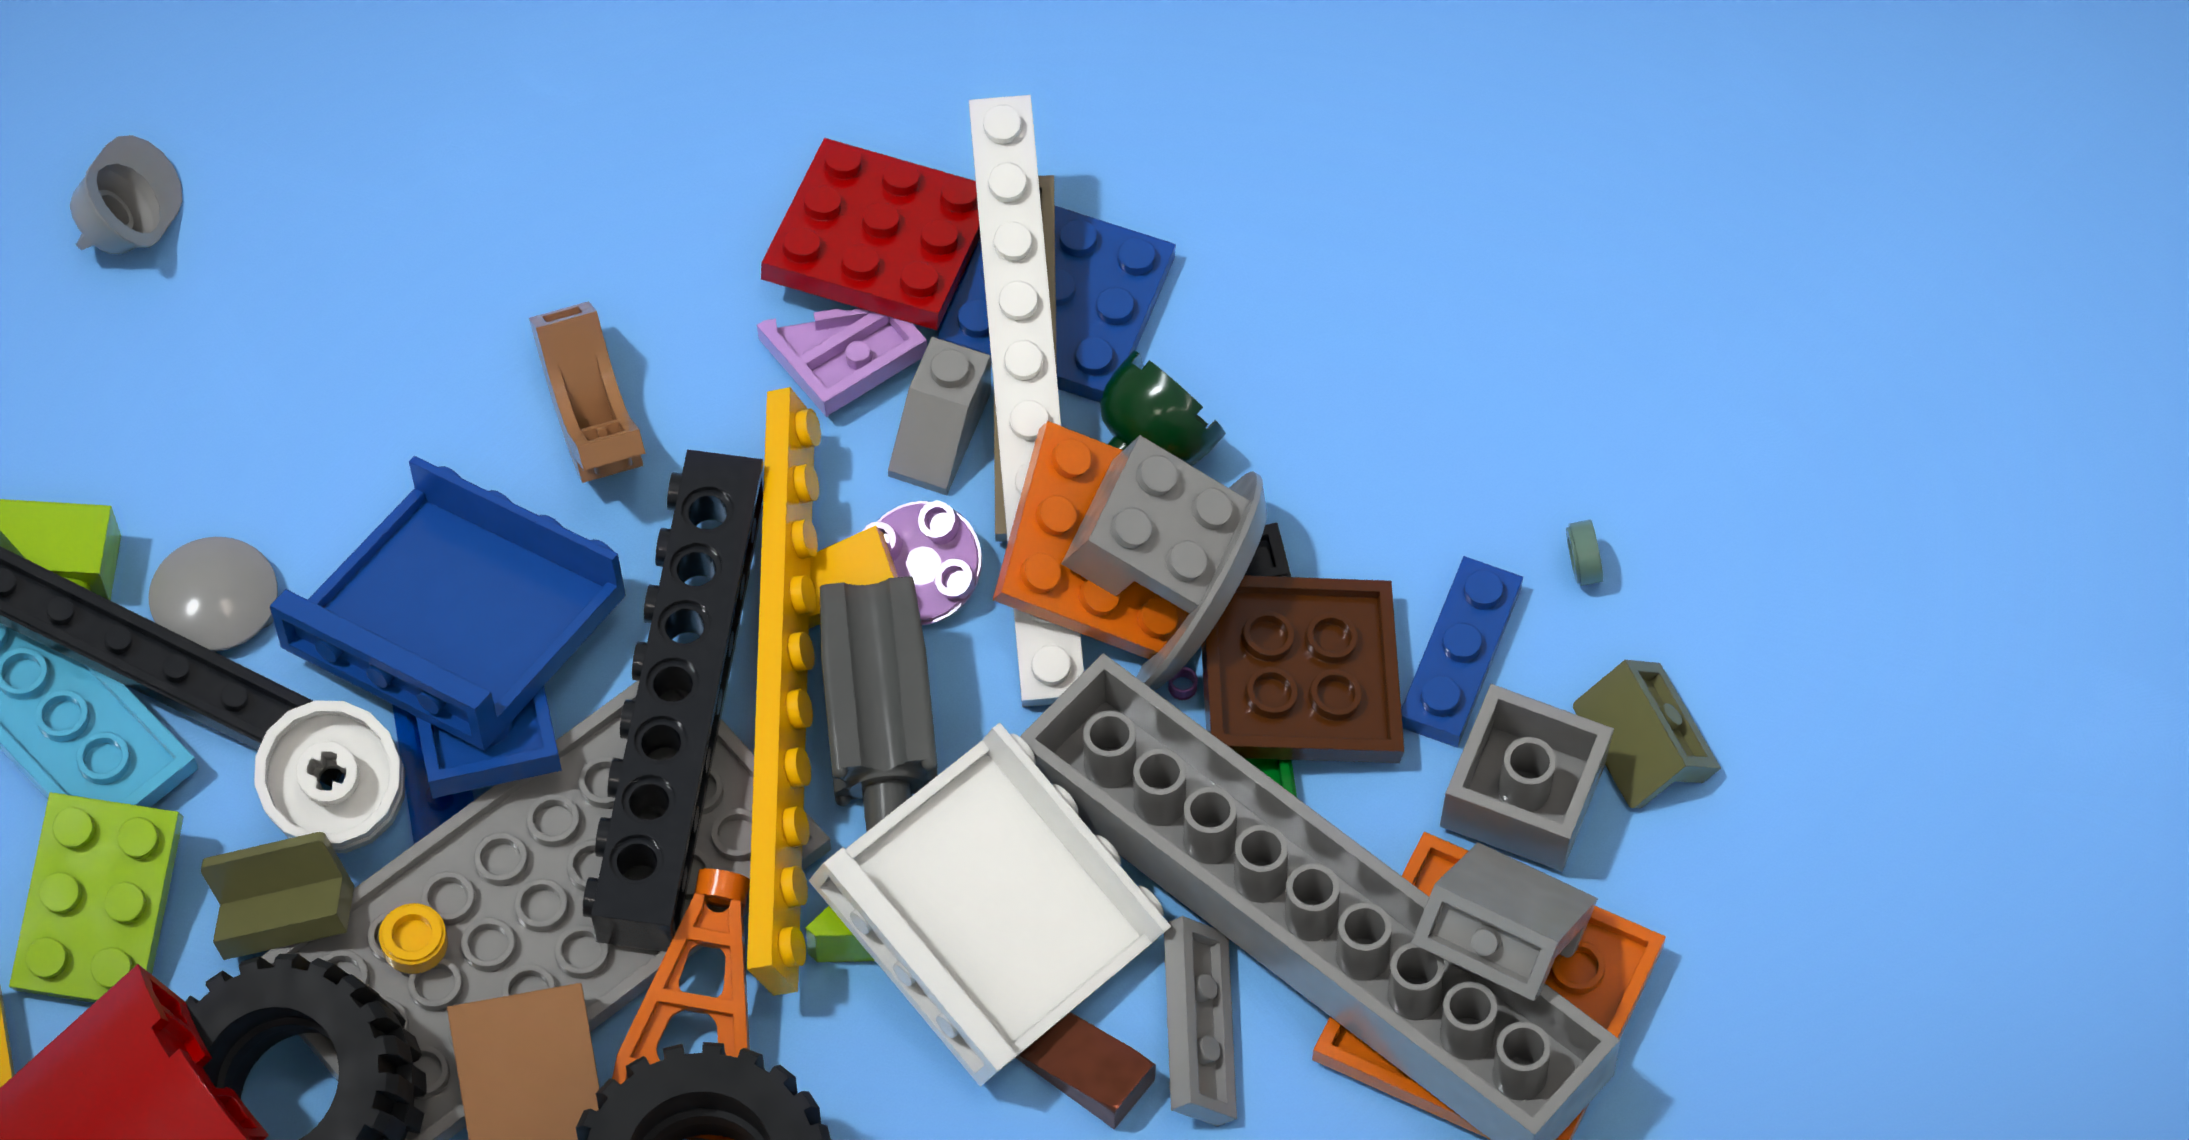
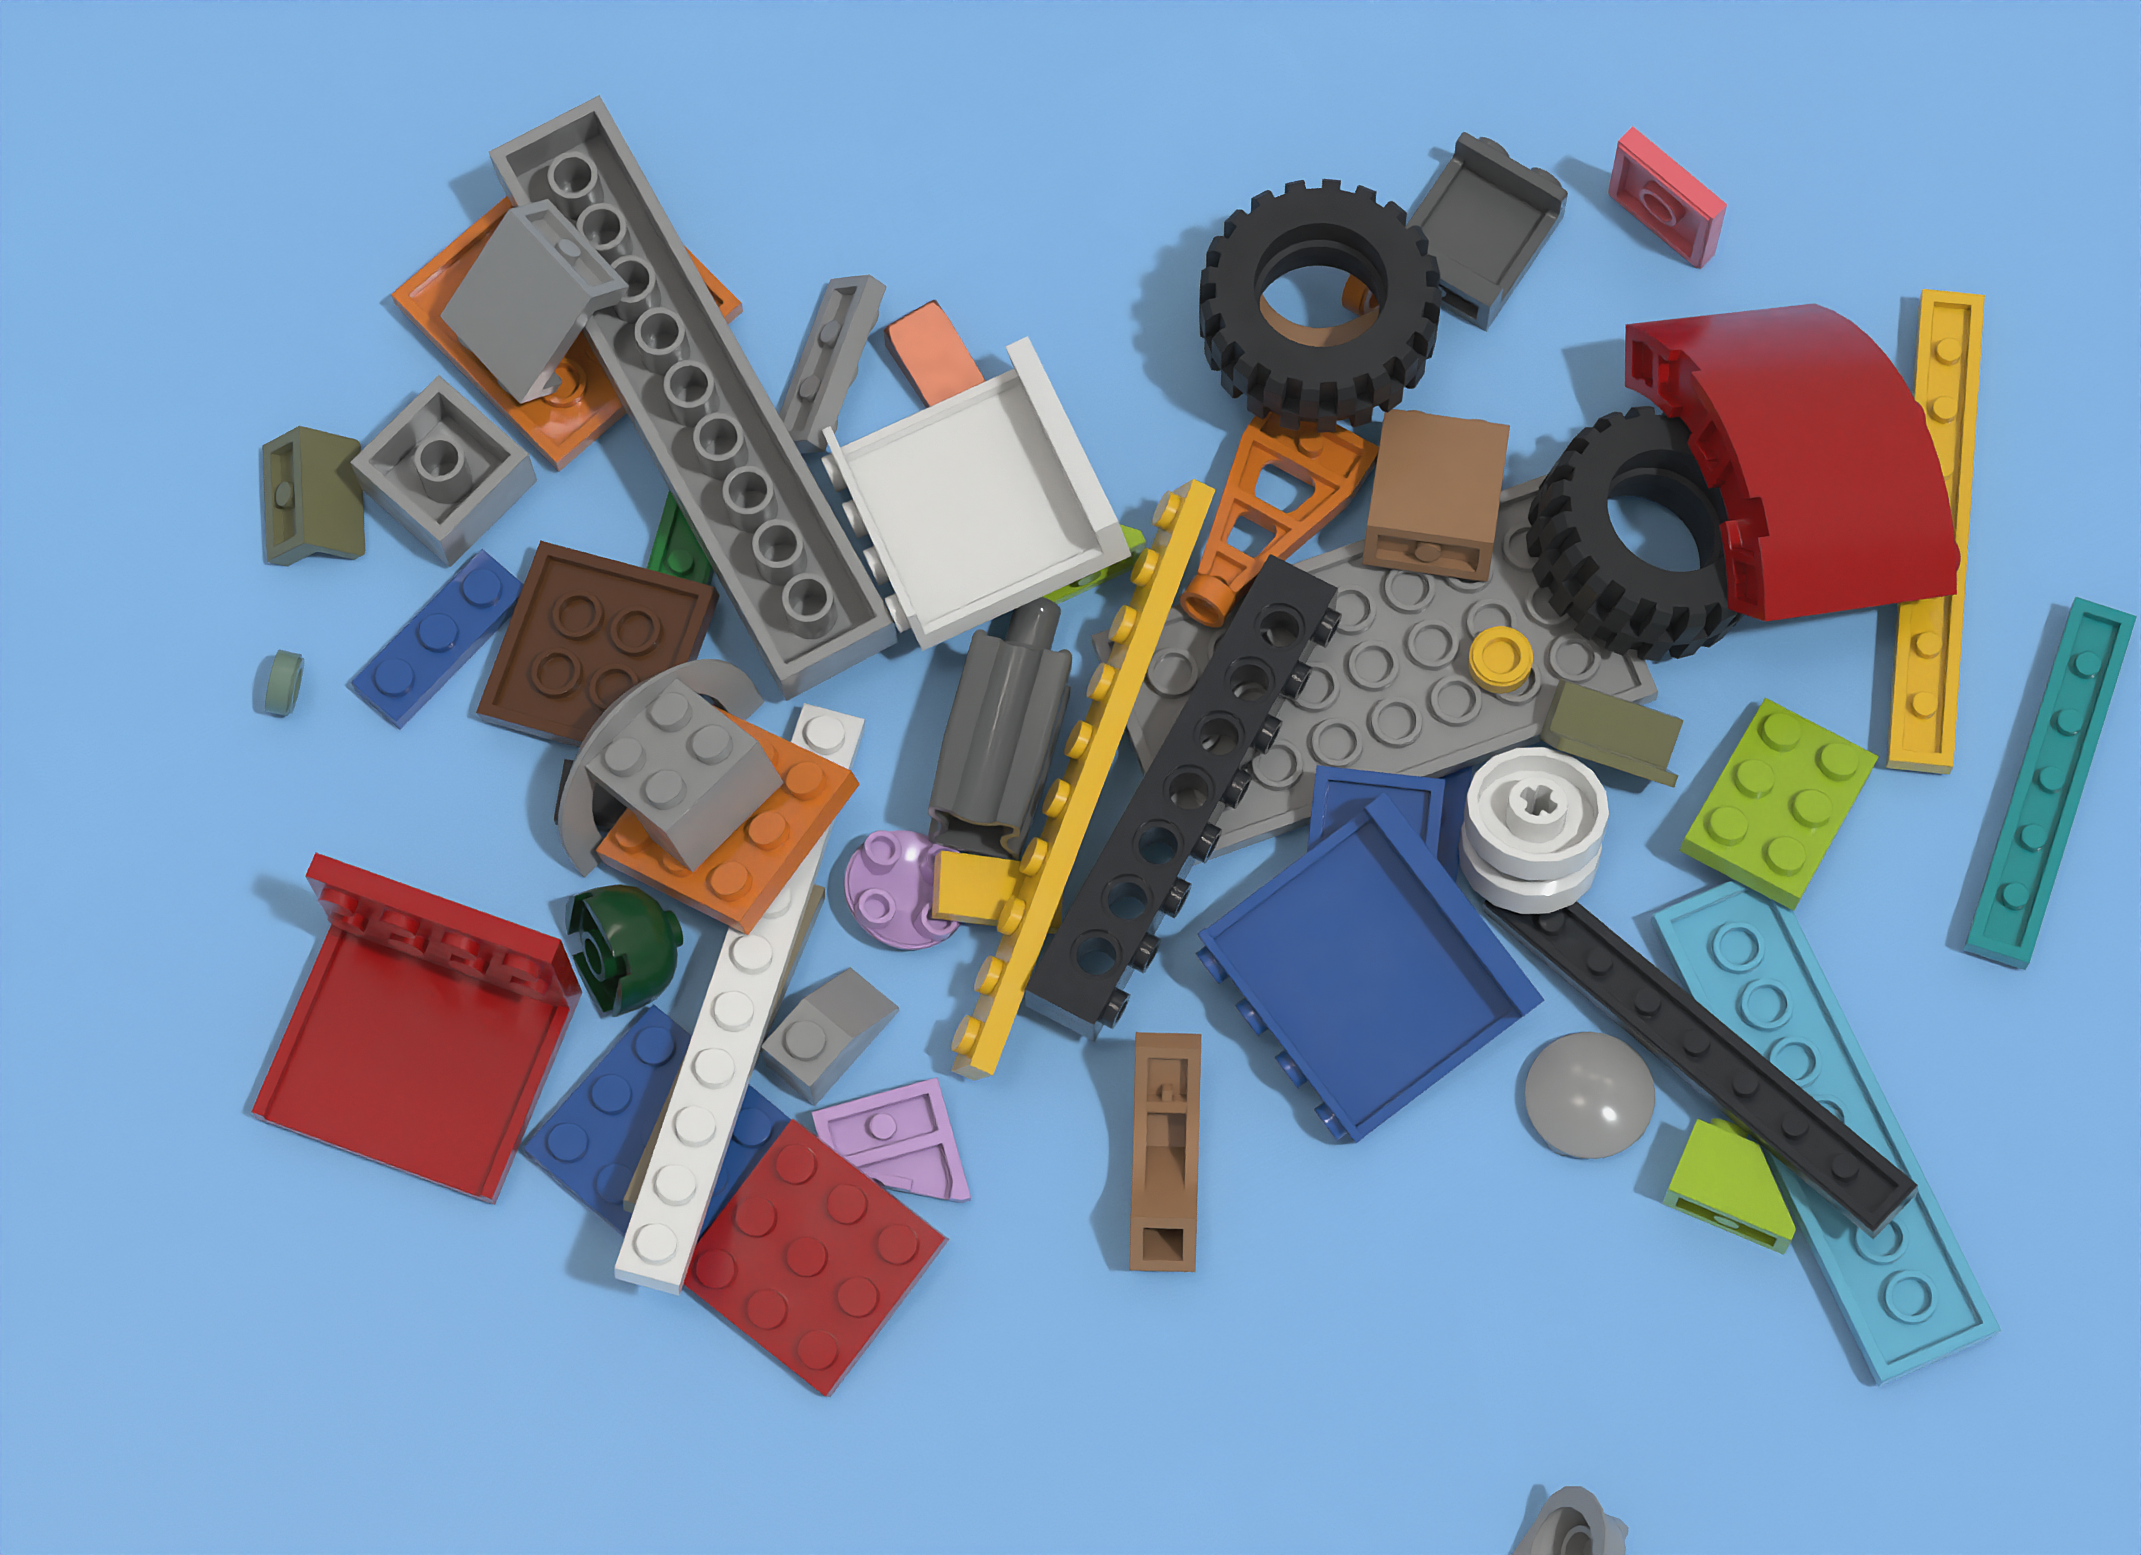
camera: 155 degrees left, 10 degrees up
(1309, 294) = (420, 1032): none -> red bracket

